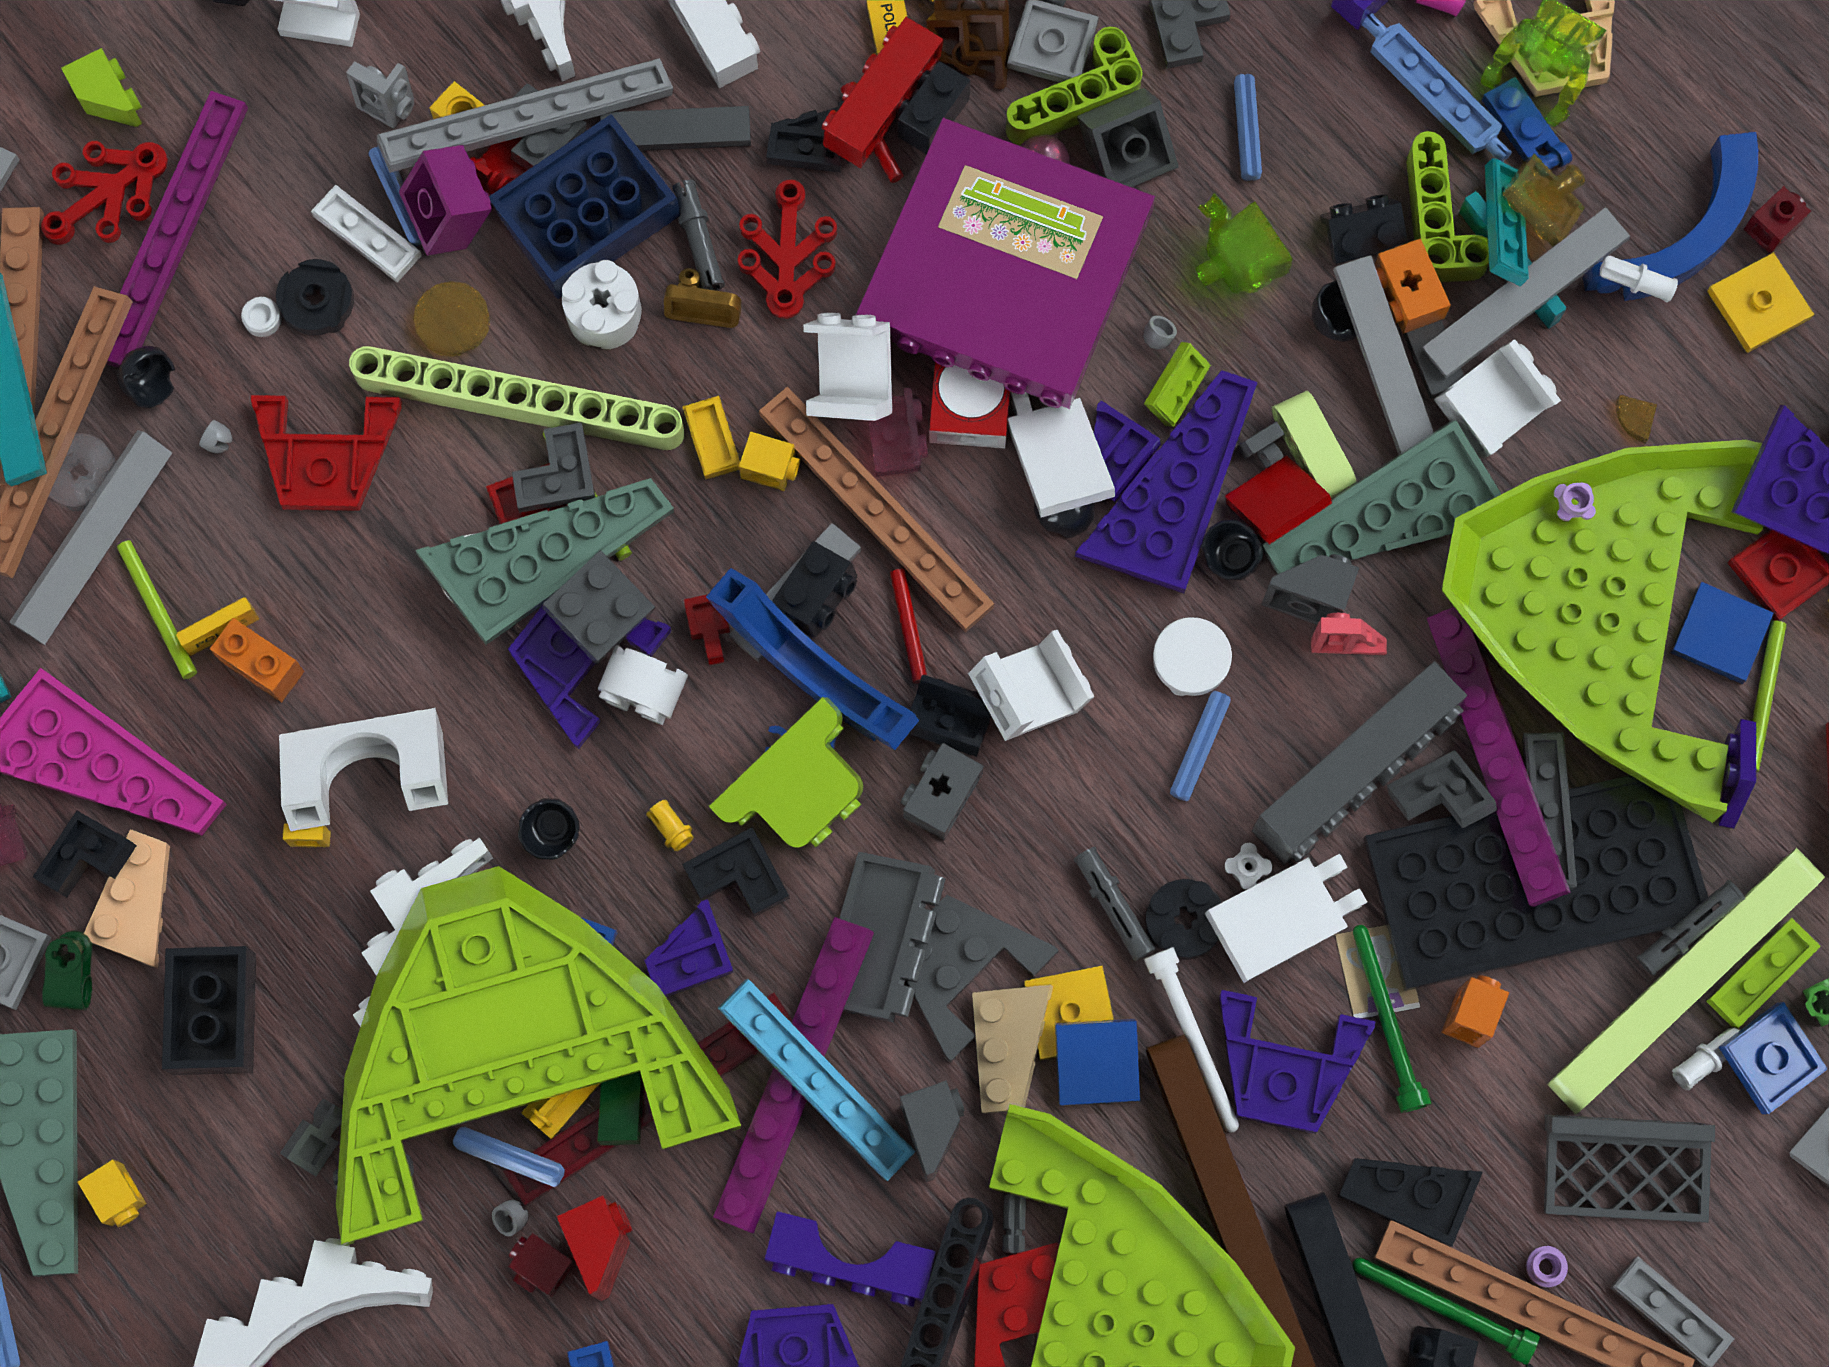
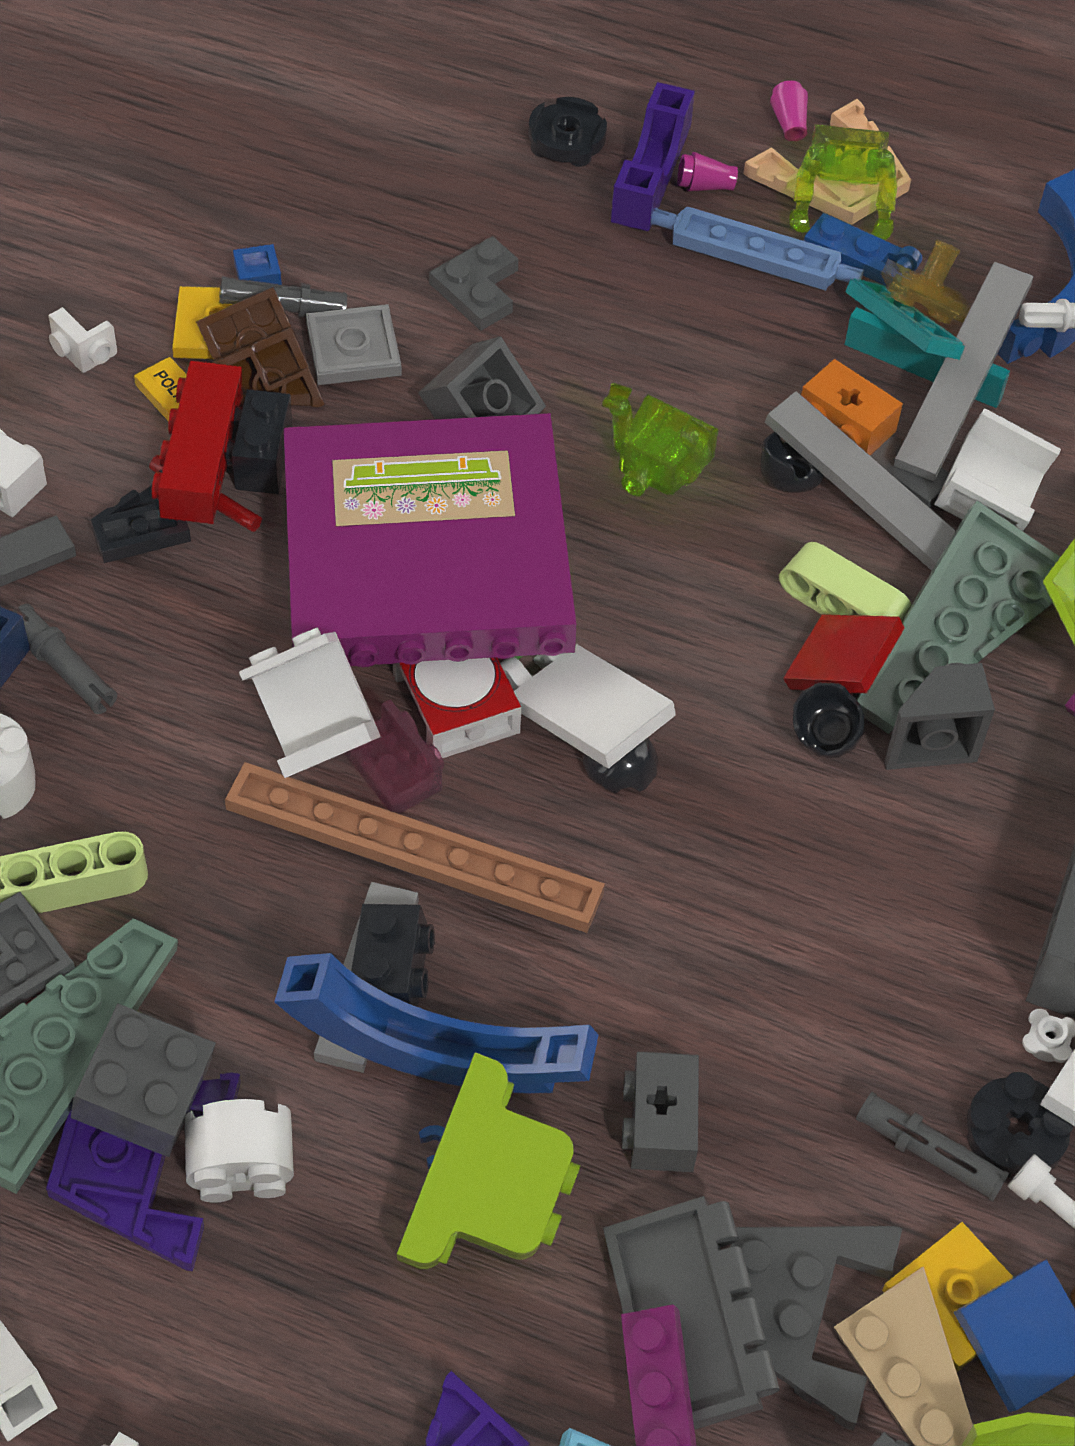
camera: 30 degrees left, 20 degrees down
(548, 828) = (204, 1380): black hair -> none
(670, 825) = (356, 1307): yellow pin -> none
(699, 305) = (101, 722): pearl gold piece -> none
(707, 624) = (281, 1048): red plate -> none
(712, 437) = (183, 855): yellow tile -> none
(740, 862) = (469, 1308): black plate -> none
(768, 461) = (264, 848): yellow brick -> none
(786, 255) = (172, 638): red plant -> none
(908, 624) = (519, 955): red bar -> none
(950, 715) = (627, 1018): black bracket -> none
(1031, 686) = (700, 947): white panel -> none
(1070, 92) = (428, 346): lime beam -> none
(1123, 446) = (652, 664): dark purple wing -> none
(1159, 332) = (620, 555): light grey hinge -> none
(1168, 505) = (732, 707): dark purple wing -> none
(1177, 384) = (669, 592): lime plate -> none
(1192, 656) = (850, 847): white tile -> none
(1200, 746) = (916, 935): medium blue axle -> none
(1247, 127) = (593, 344): medium blue axle -> none
(1263, 445) = (795, 612): dark grey tile -> none
(1347, 636) = (998, 751): coral wing -> none
(1364, 228) = (765, 385): black bracket -> none
(1439, 208) = (818, 338): lime beam -> none

